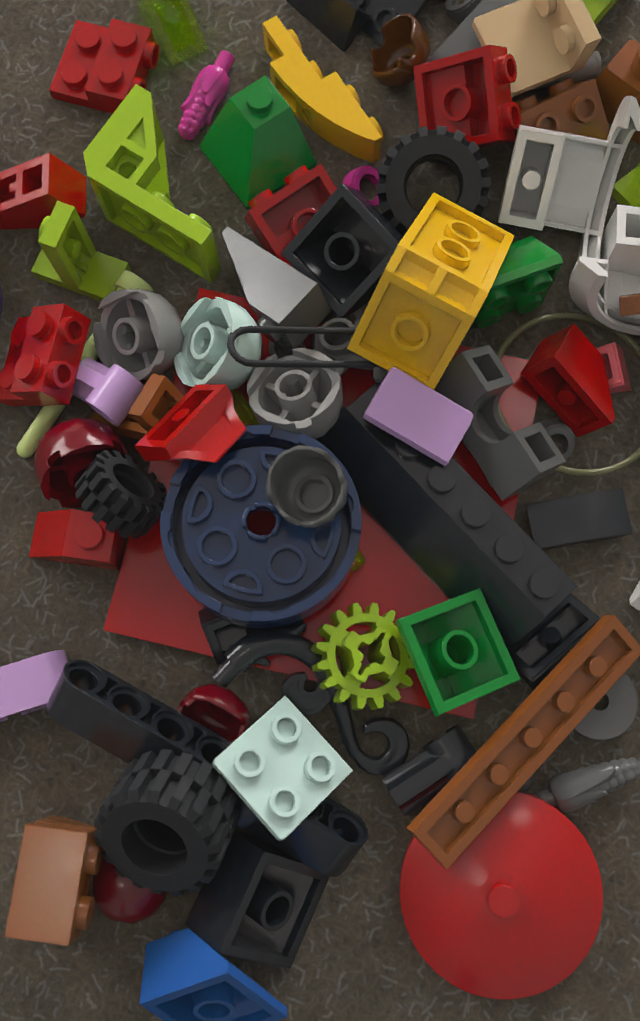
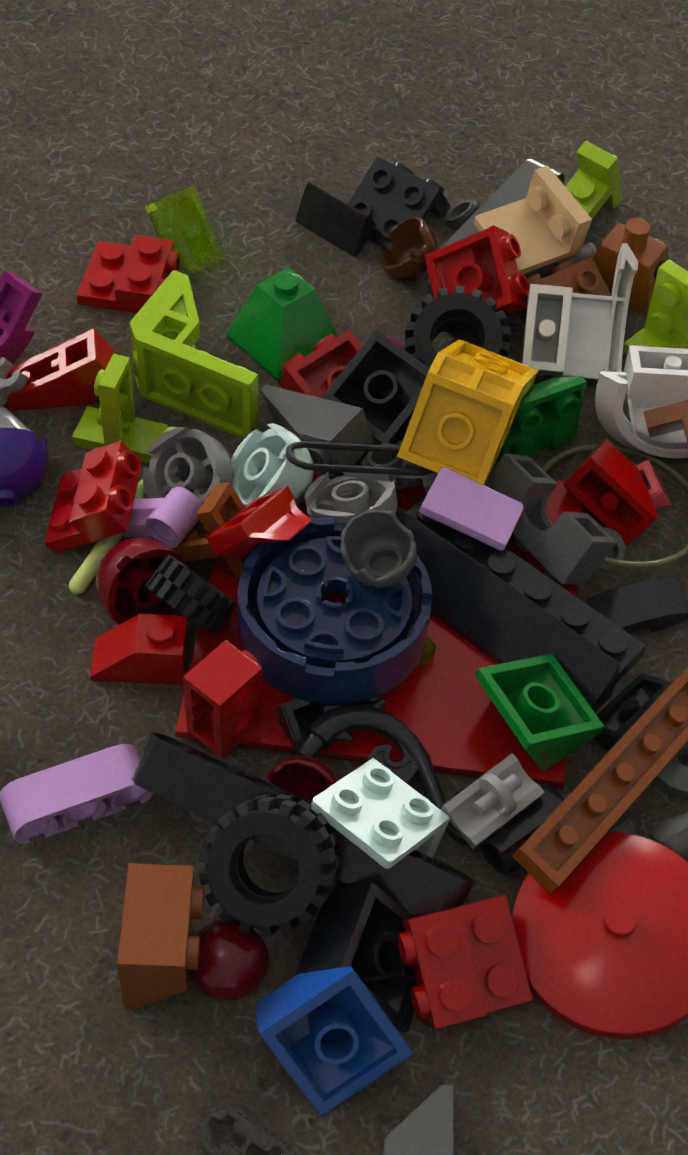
camera: 10 degrees left, 25 degrees down
(142, 622) = (224, 698): none -> red brick
(205, 96) = (228, 293): dark pink piece -> none
(320, 102) = (344, 292): yellow slope -> none
(346, 645) = (471, 727): lime gear -> none
(346, 919) = (464, 962): none -> red plate
(397, 754) = (492, 801): none -> light grey hips

